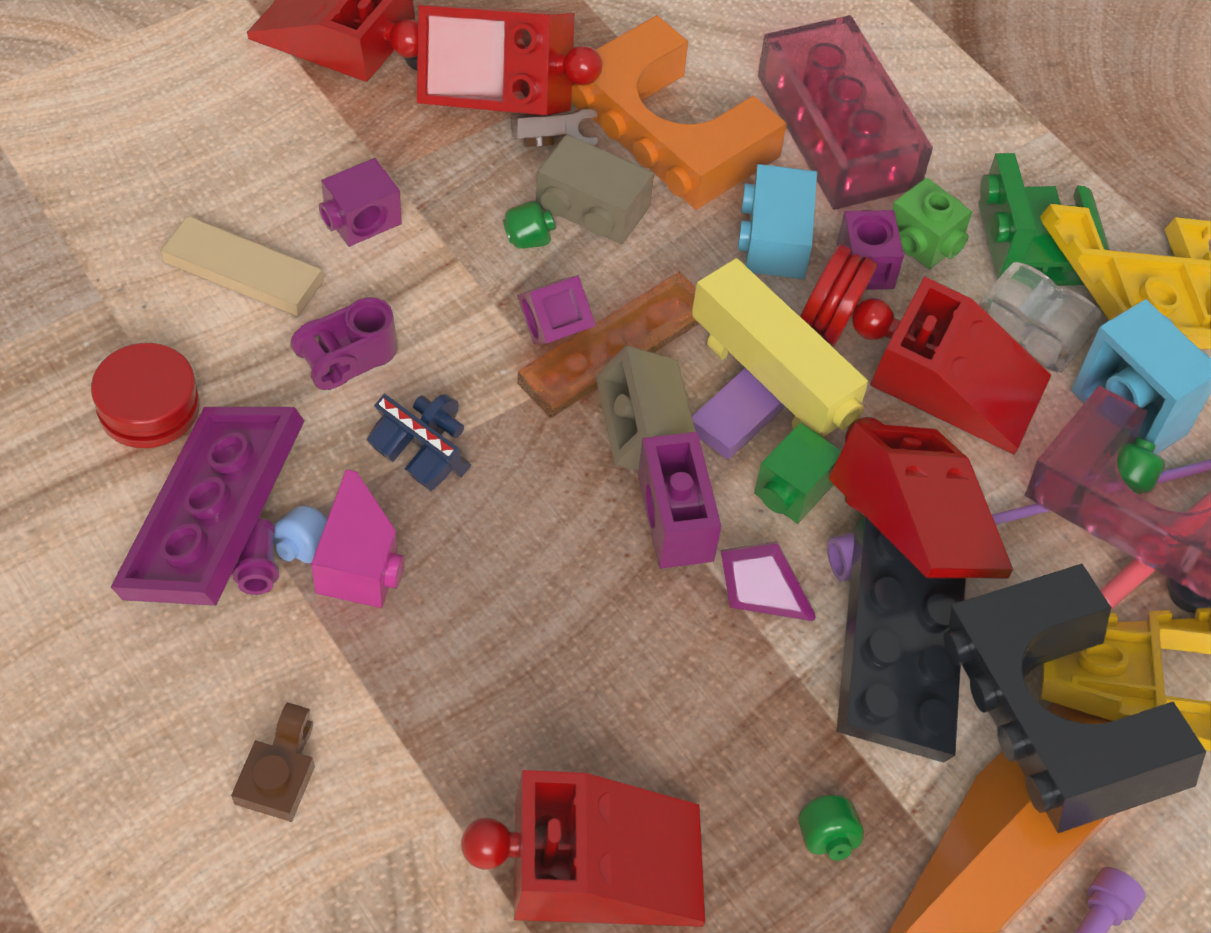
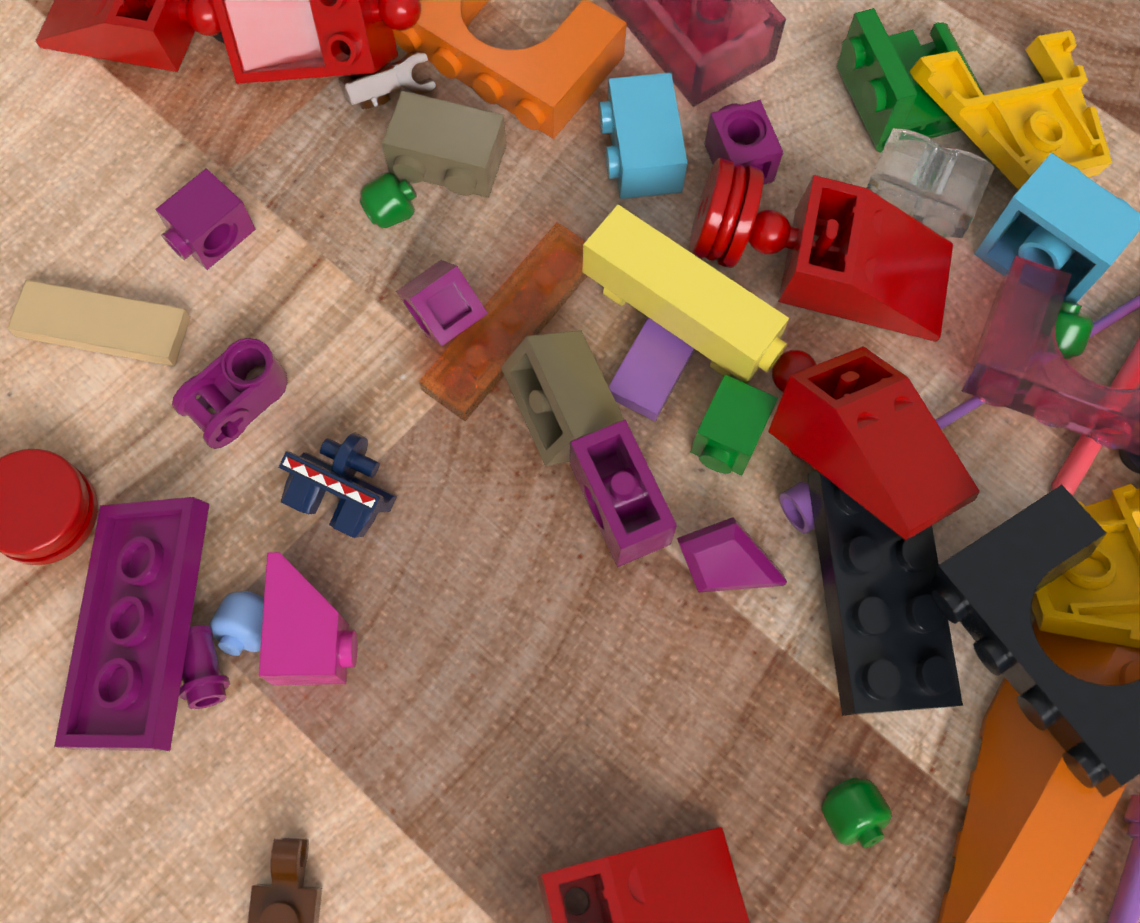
camera: 10 degrees left, 15 degrees up
(931, 223) = (800, 102): bright green brick -> none

